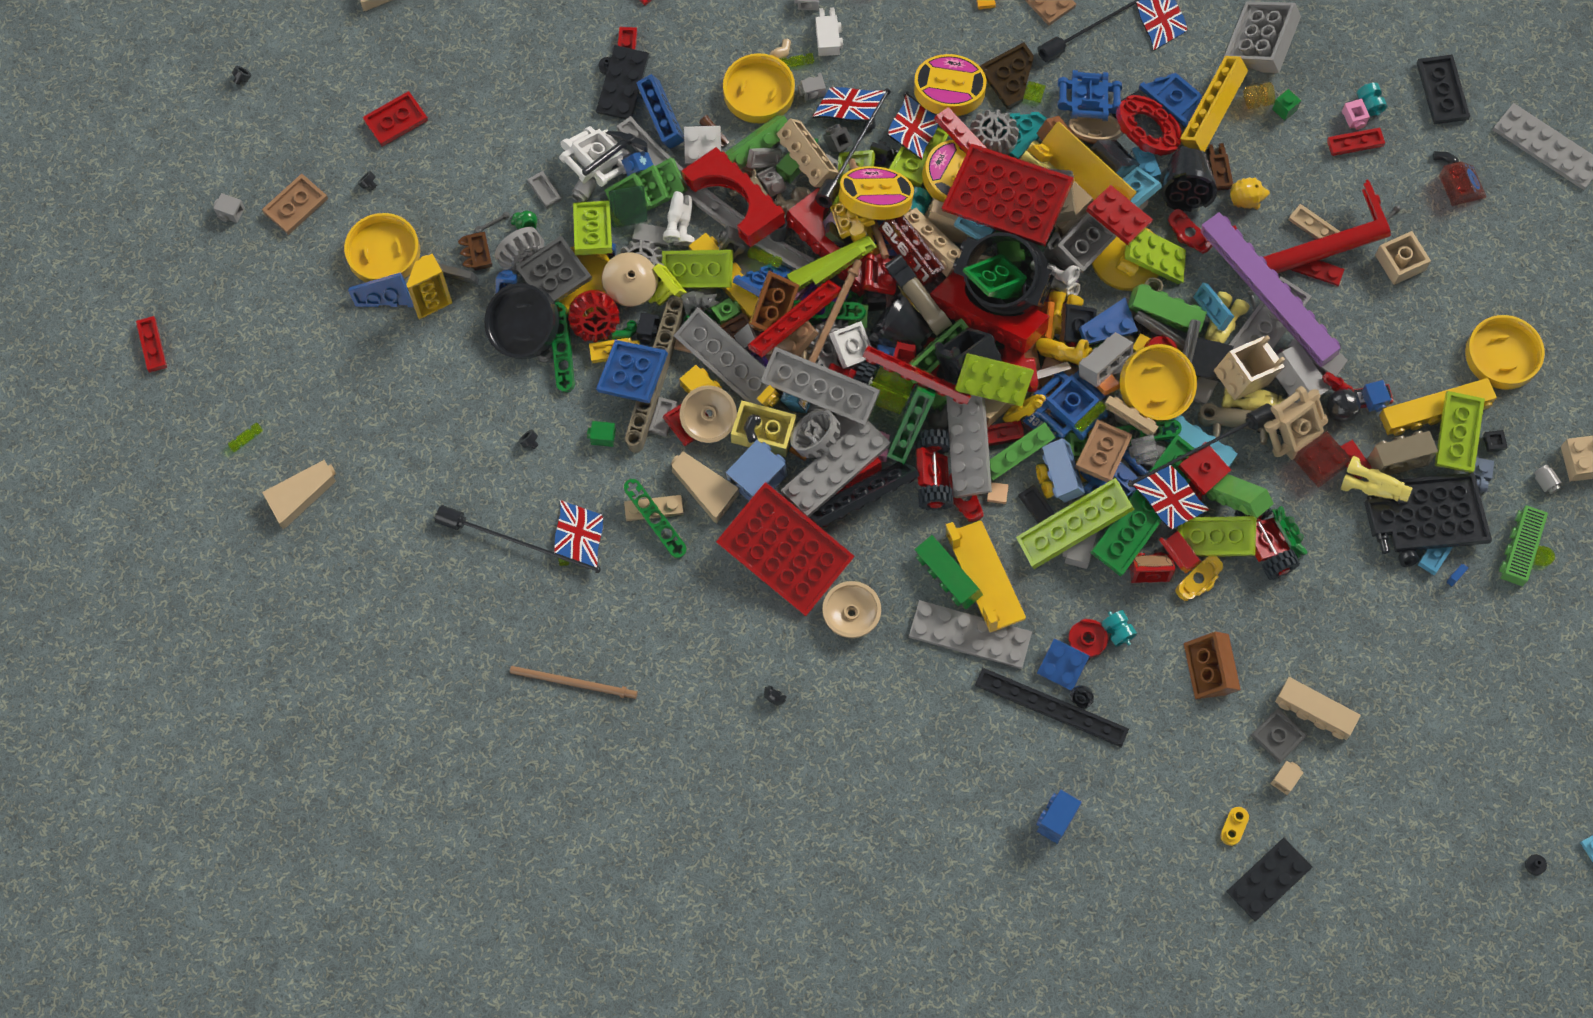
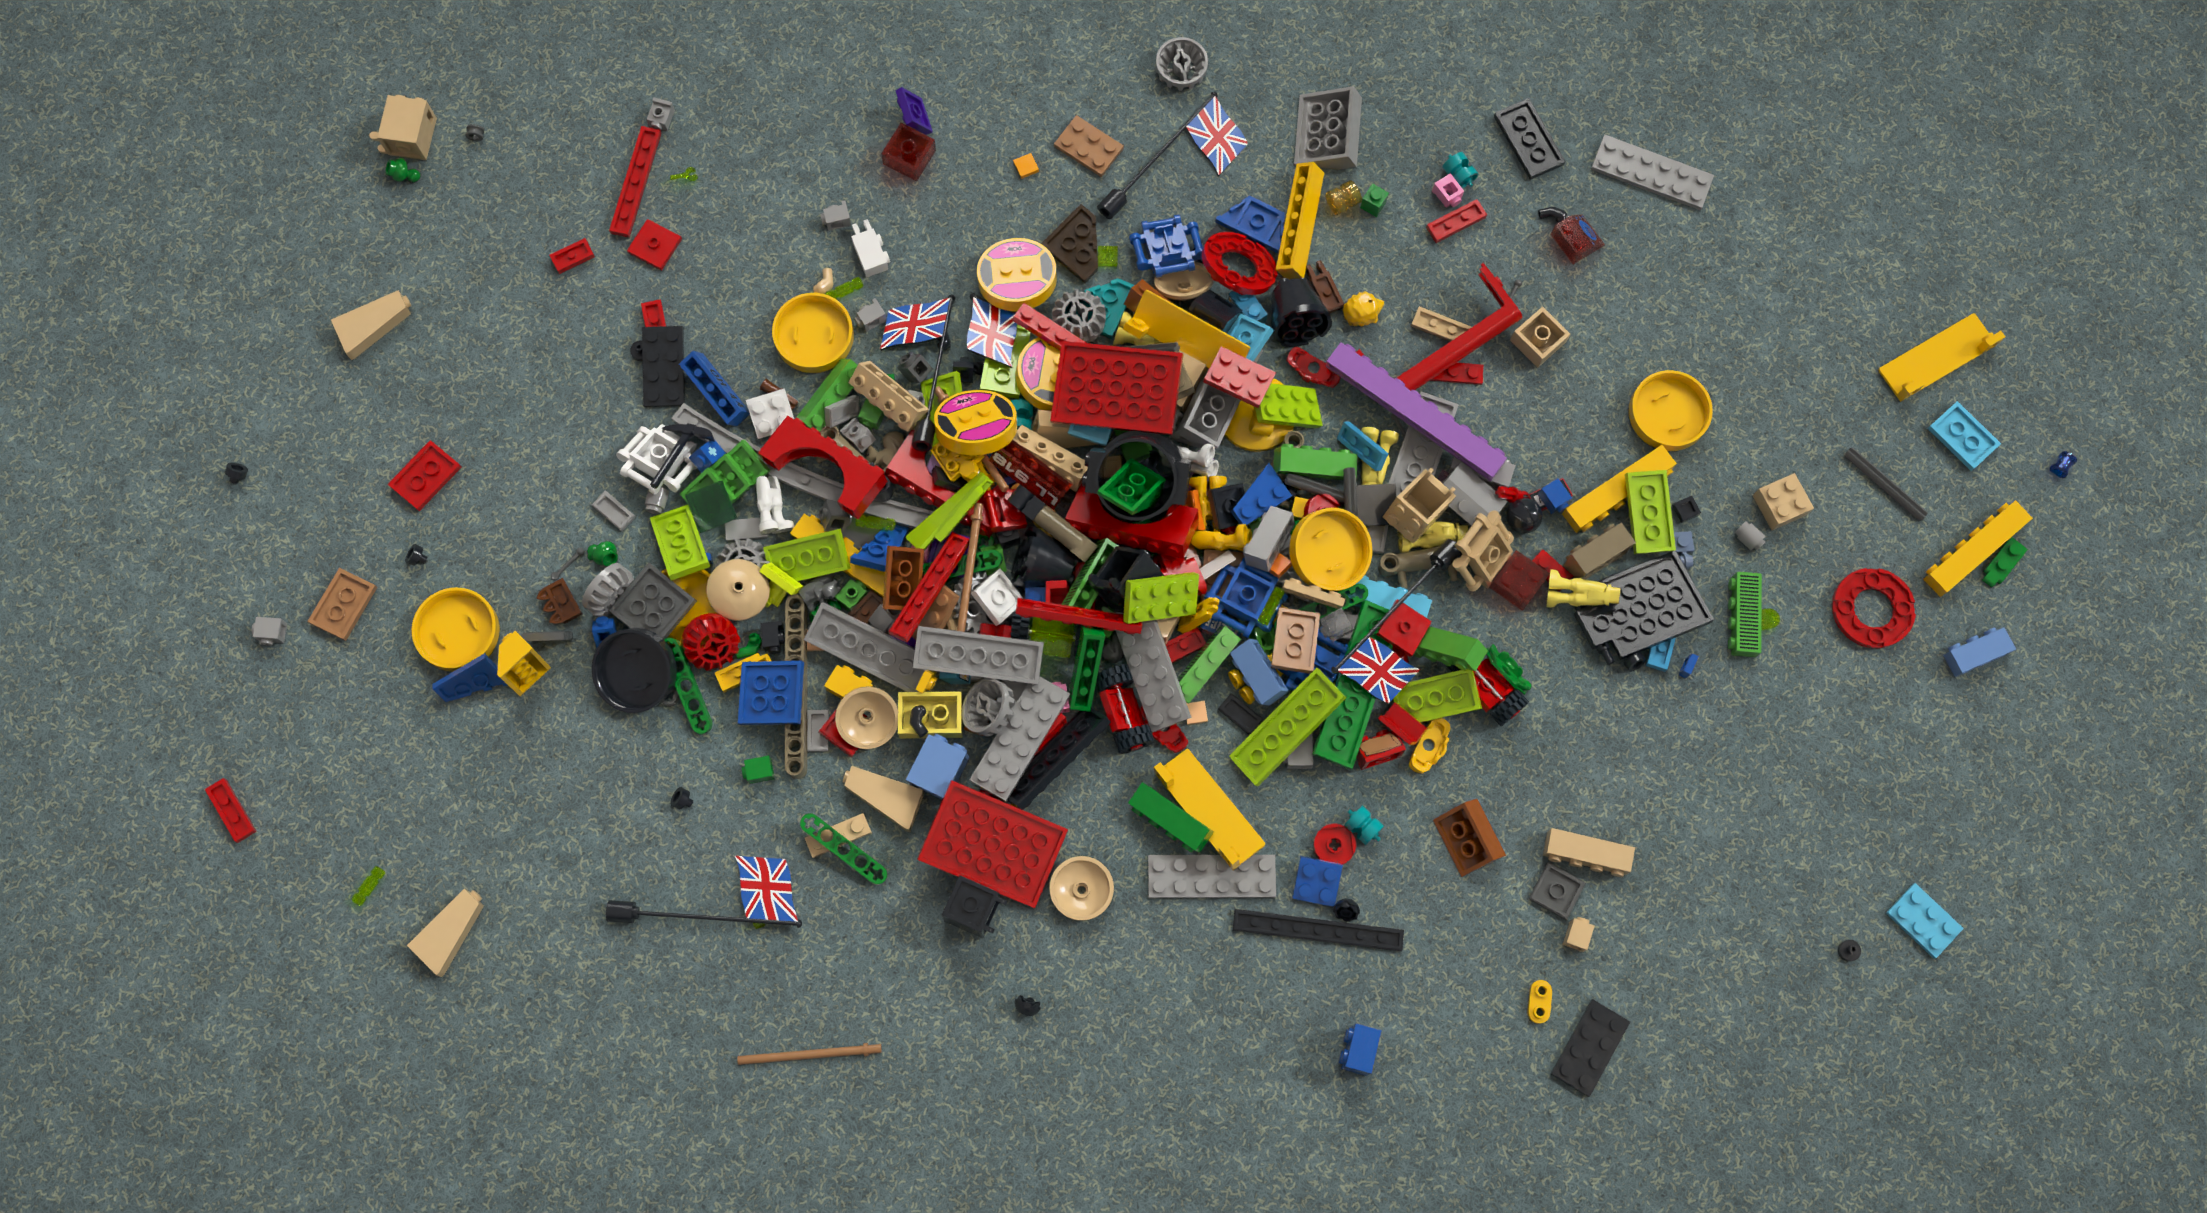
camera: 20 degrees left, 5 degrees up
(750, 595) = (972, 907): none -> black container

